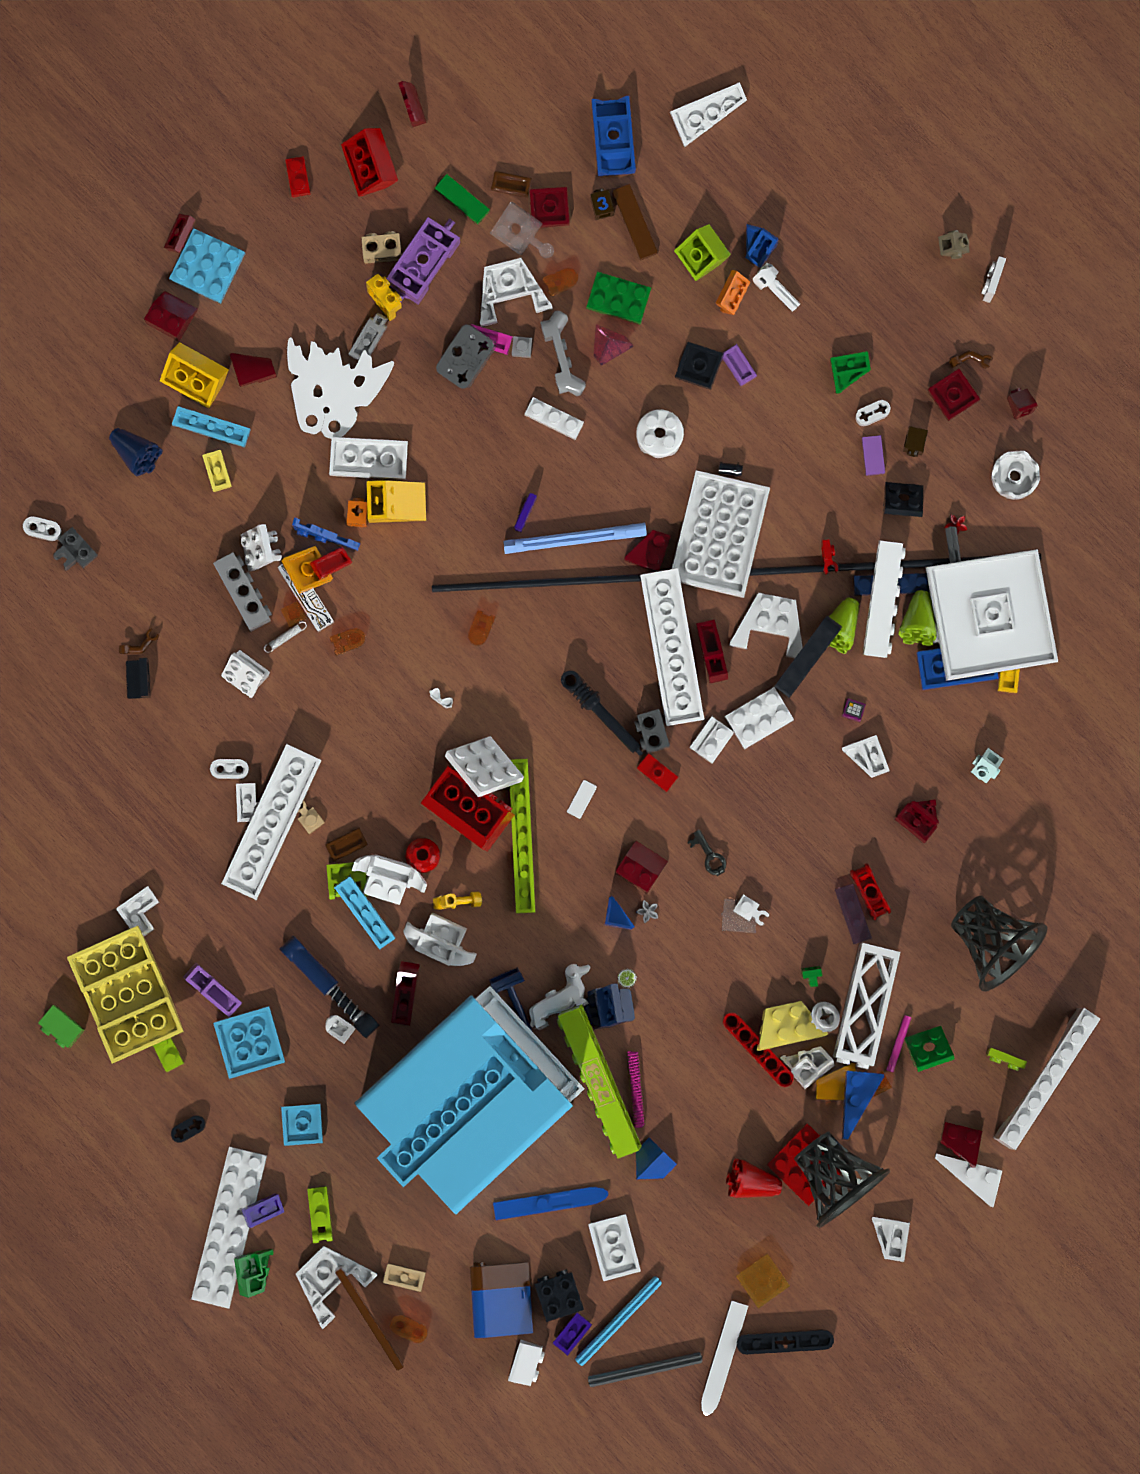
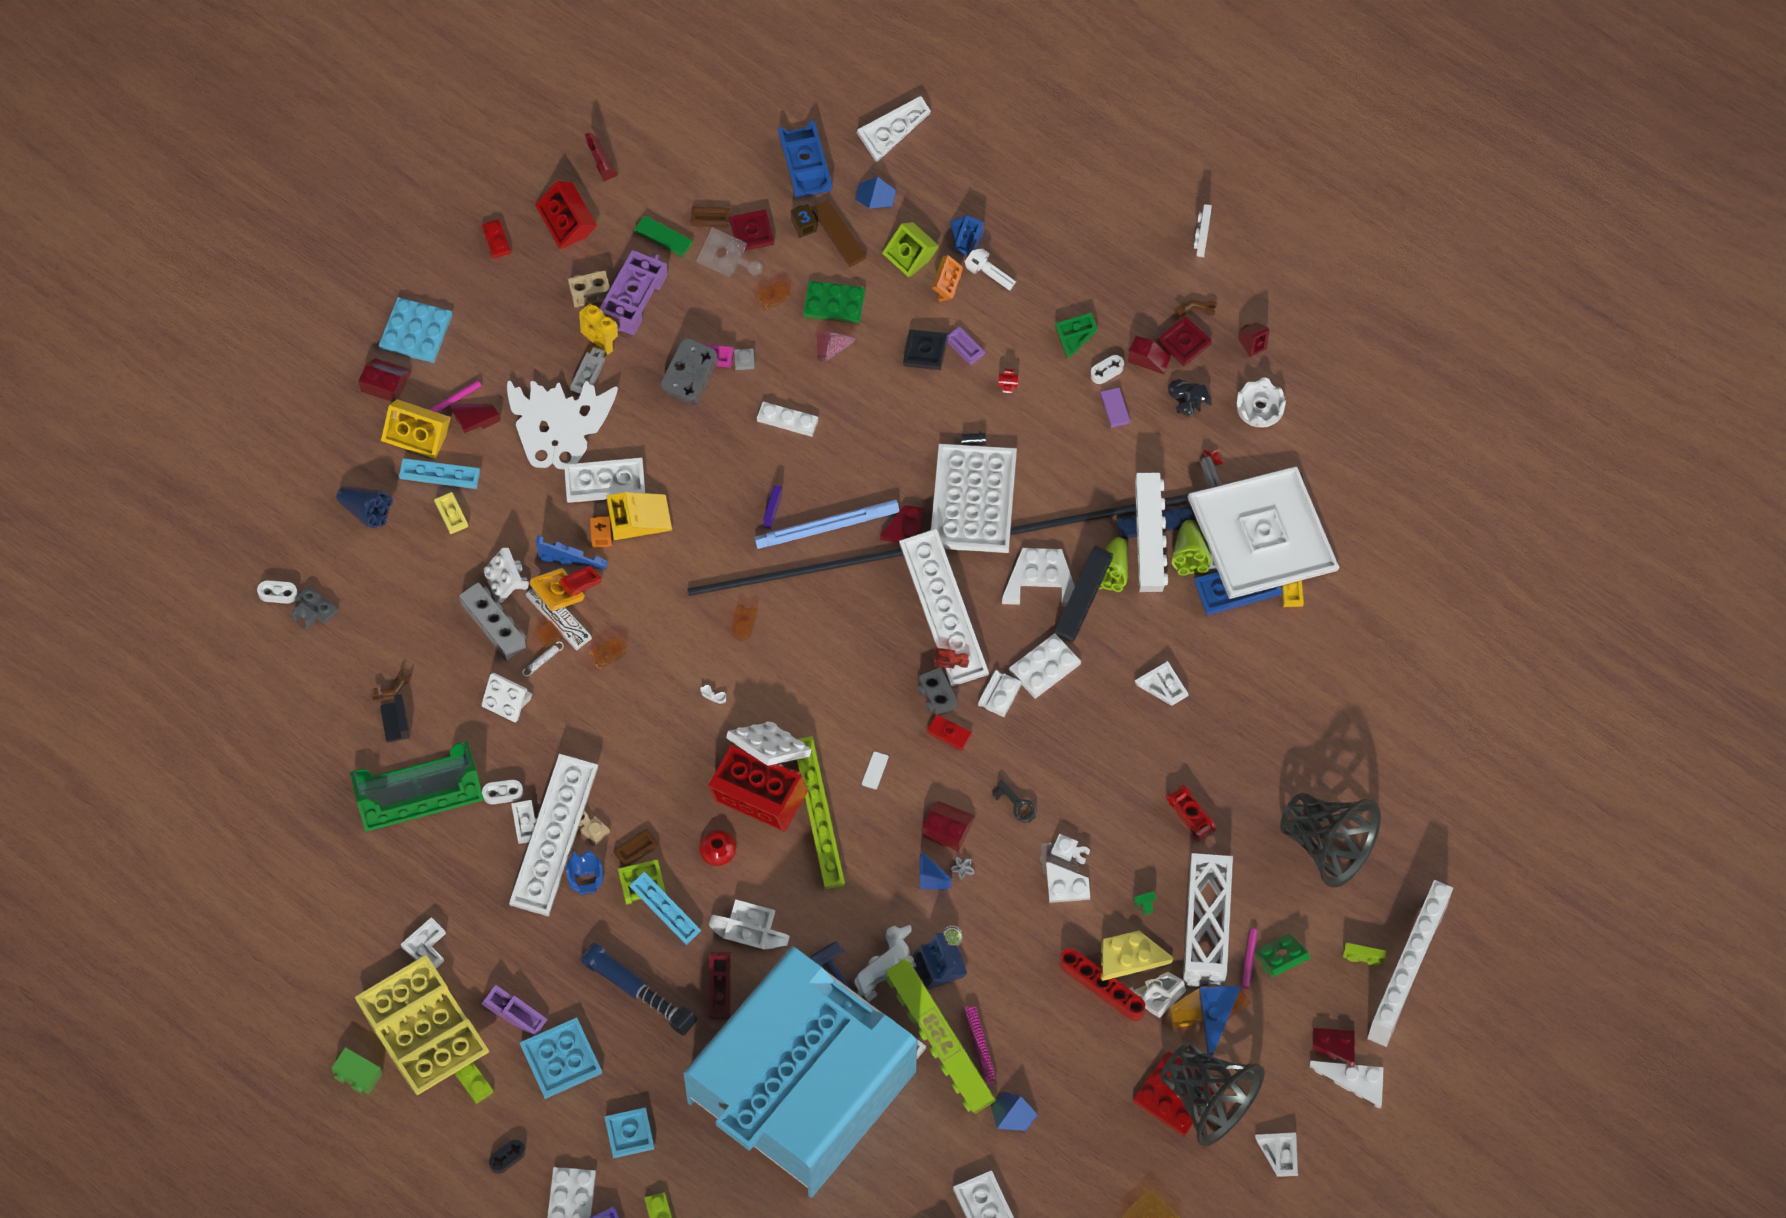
camera: 10 degrees left, 20 degrees down
(149, 753) = (417, 789): none -> windscreen
(179, 233) = (383, 303): dark red plate -> none
(237, 345) = (457, 396): none -> dark pink bar
(294, 854) = (584, 865): none -> blue helmet
(339, 1028) = (654, 1028): white plate -> none
(388, 877) = (684, 871): white plate -> none
(451, 900) = (753, 880): yellow bar -> none
(507, 282) = (721, 302): white wing -> none
(549, 1202) = (907, 1174): blue piece -> none
(551, 331) = (791, 379): light grey plate -> none
(590, 700) = (868, 672): black piece -> none
(657, 446) = (900, 426): white plate -> none
(667, 703) = (948, 659): none -> clear red plate
(676, 186) = (875, 193): none -> blue slope
(712, 651) = (985, 609): dark red slope -> none
(741, 945) = (1066, 885): none -> white wing
(751, 1181) = (1120, 1115): red cone -> none
(774, 412) = (1008, 380): none -> red gear
(825, 1008) = (1167, 935): white gear -> none
(827, 553) = (1085, 499): red plate -> none
(853, 710) = (1140, 645): slope -> none
(853, 914) = (1175, 837): clear purple tile -> none
(895, 506) = (1143, 443): black piece -> none
(915, 441) = (1154, 387): dark brown brick -> none
(916, 405) = (1148, 355): none -> dark red slope
(919, 818) = (1227, 737): dark red slope -> none
(951, 454) = (1193, 394): none -> black animal
(954, 244) = (1158, 206): dark tan brick -> none
(987, 765) = (1286, 674): light aqua brick -> none

